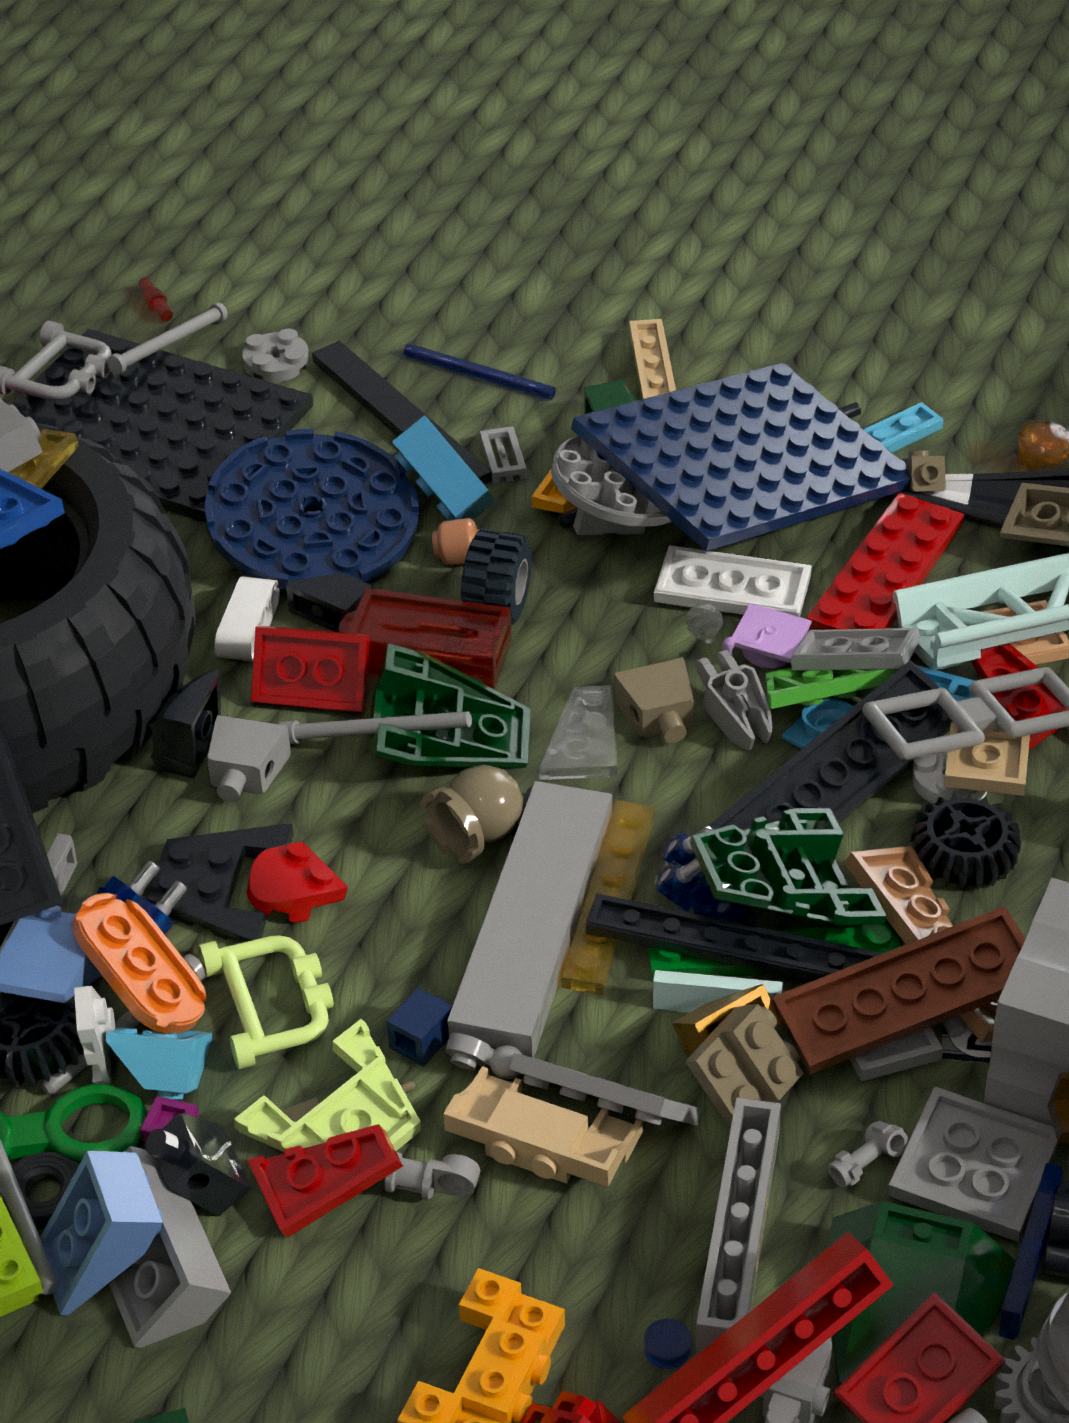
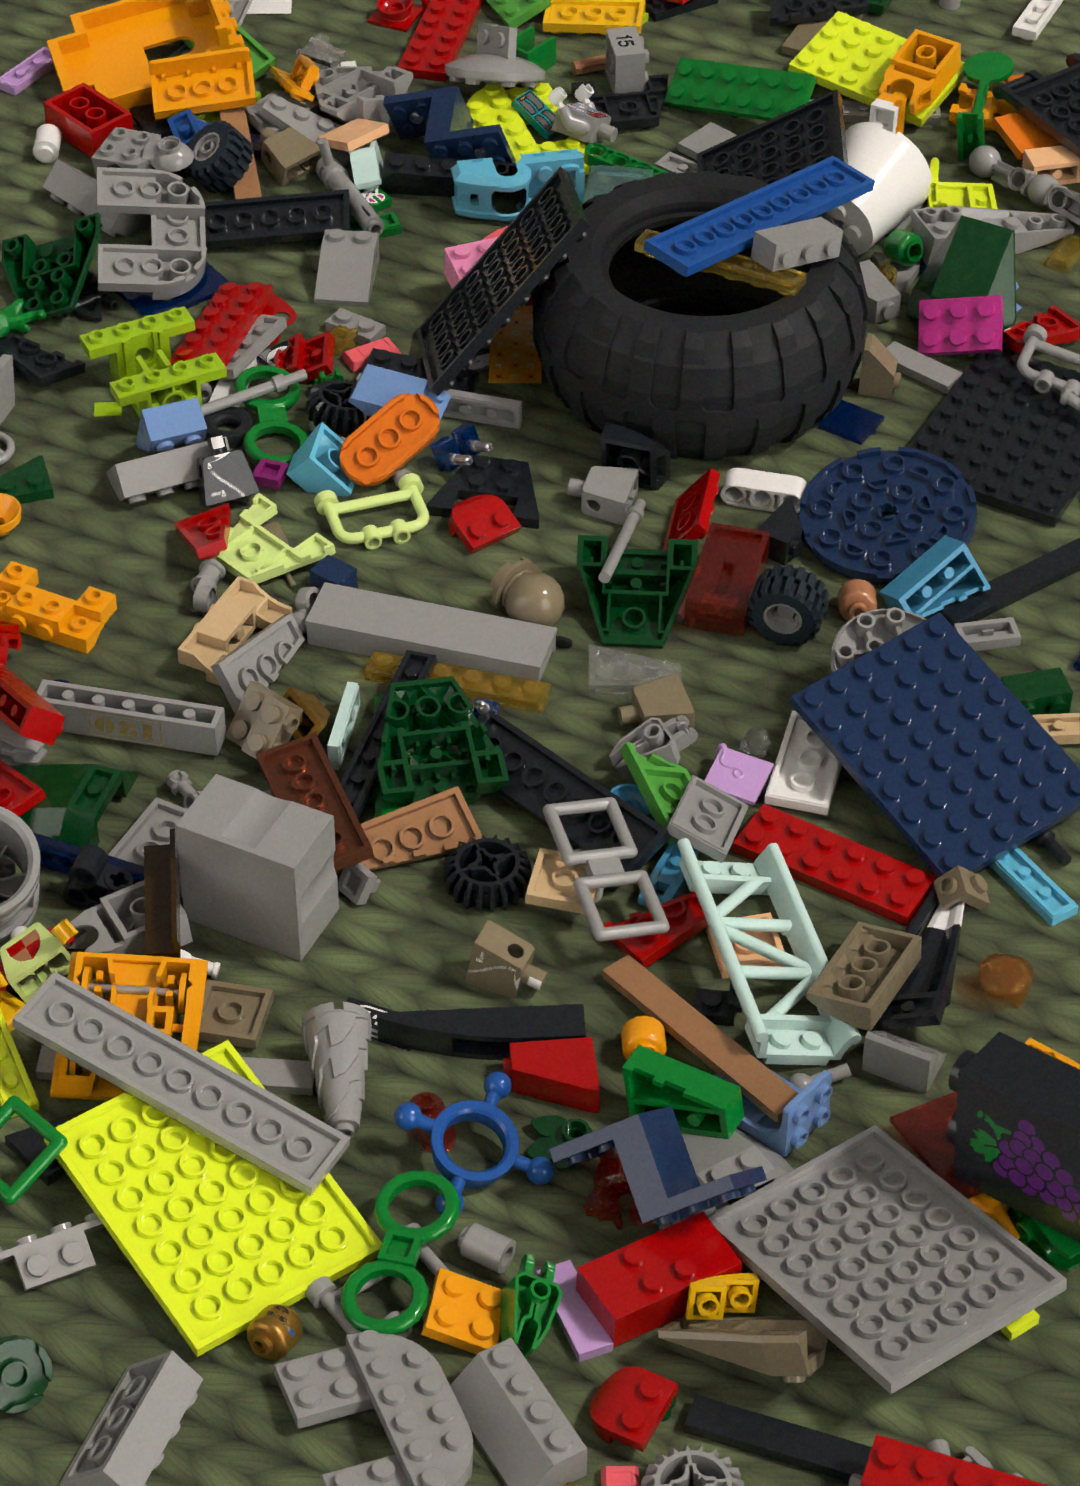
camera: 90 degrees right, 0 degrees up
(92, 1023) = (333, 411): white wing -> none

